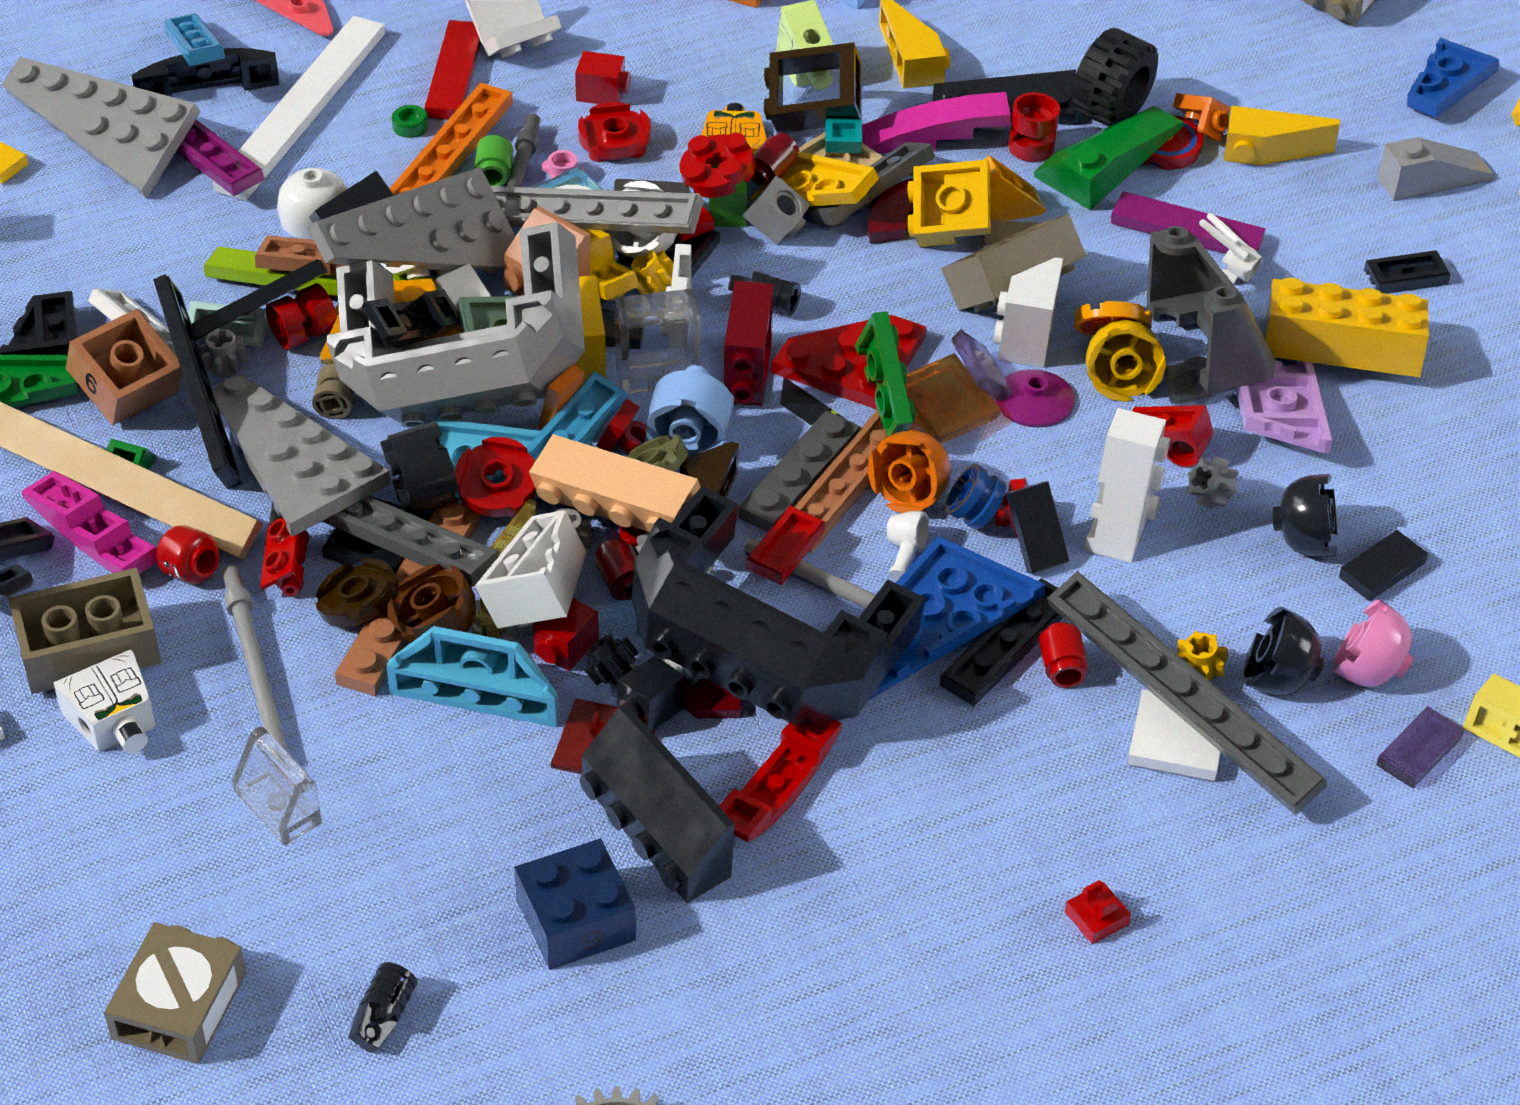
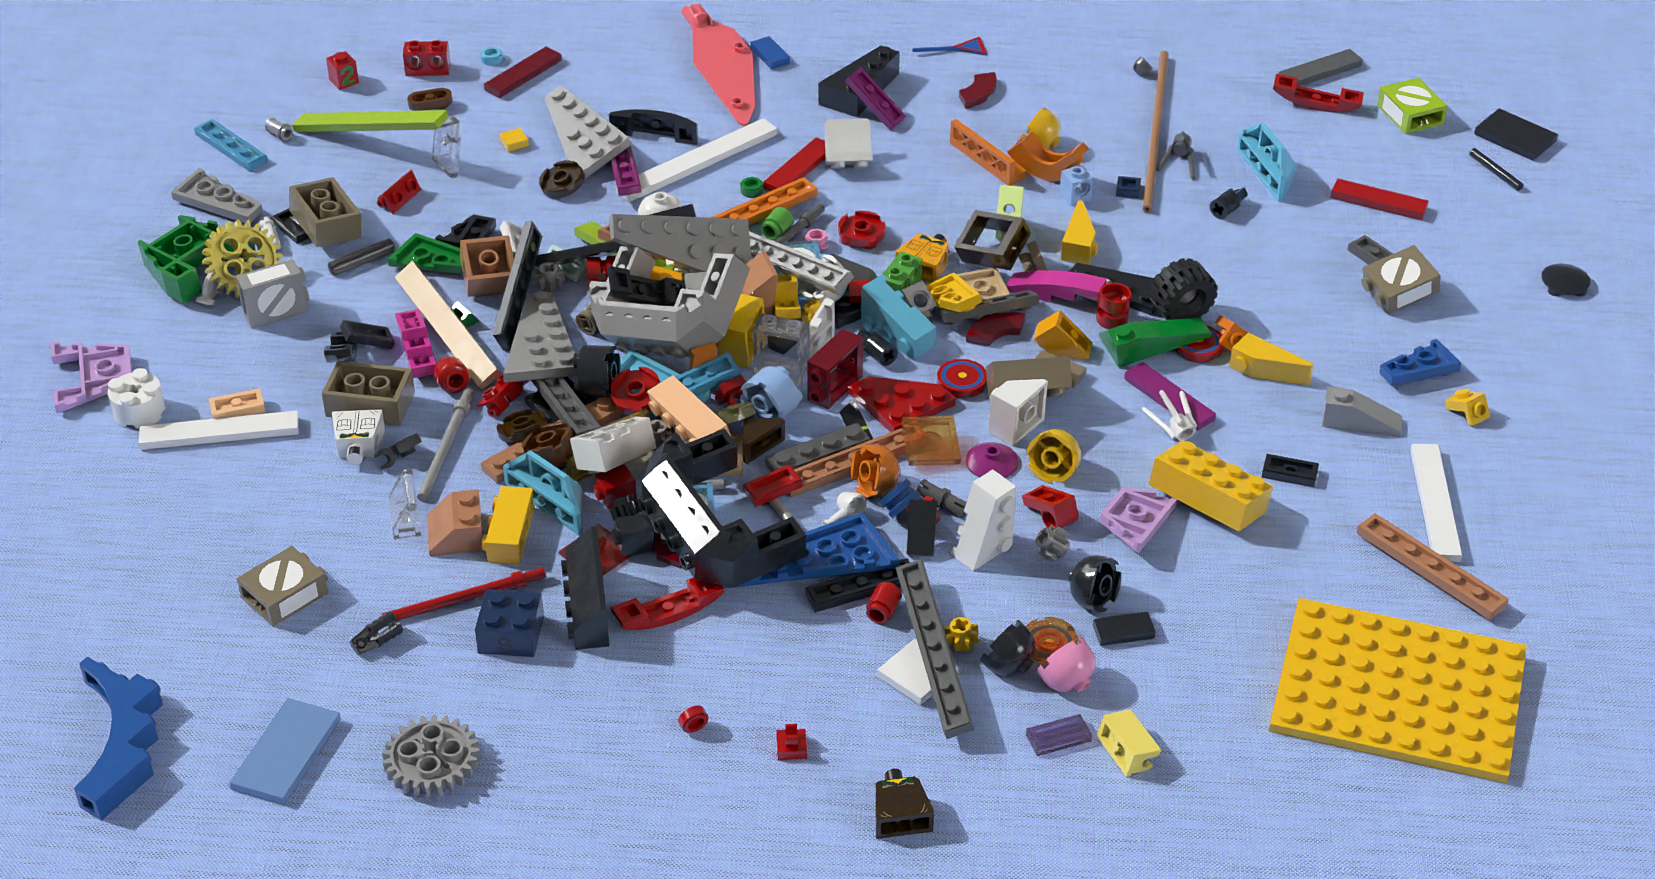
camera: 30 degrees right, 5 degrees down
(125, 198) = (562, 179): none -> dark brown tile
(193, 39) = (659, 103): dark azure tile -> none
(196, 695) = (403, 447): none -> black plate
(374, 783) = (456, 524): none -> nougat slope
(454, 753) = (509, 525): none -> yellow brick
(525, 834) = (515, 580): none -> red bar
(601, 78) = (876, 196): red brick -> none
(704, 152) = (891, 261): red plate -> none
(760, 240) = (894, 320): none -> medium azure wedge
(774, 158) = (932, 271): dark red brick -> none
(843, 135) = (993, 273): teal tile -> none
(878, 96) = (1033, 258): none -> dark tan tile
(880, 344) = (897, 410): green wing -> none
(910, 294) = (962, 377): none -> red tile
(945, 935) = (693, 719): none -> red tile
(949, 202) = (1019, 330): yellow plate -> none
(981, 365) = (967, 429): clear purple tile -> none
(1017, 470) = (943, 497): none -> dark grey pin
(1090, 321) = (1065, 424): light orange tile -> none
(1184, 380) = (1088, 481): clear smoke plate -> none
(1196, 291) = (1123, 446): dark grey windscreen -> none
(1314, 604) = (1050, 636): none -> clear orange tile
(1315, 937) = (901, 806): none -> dark brown torso

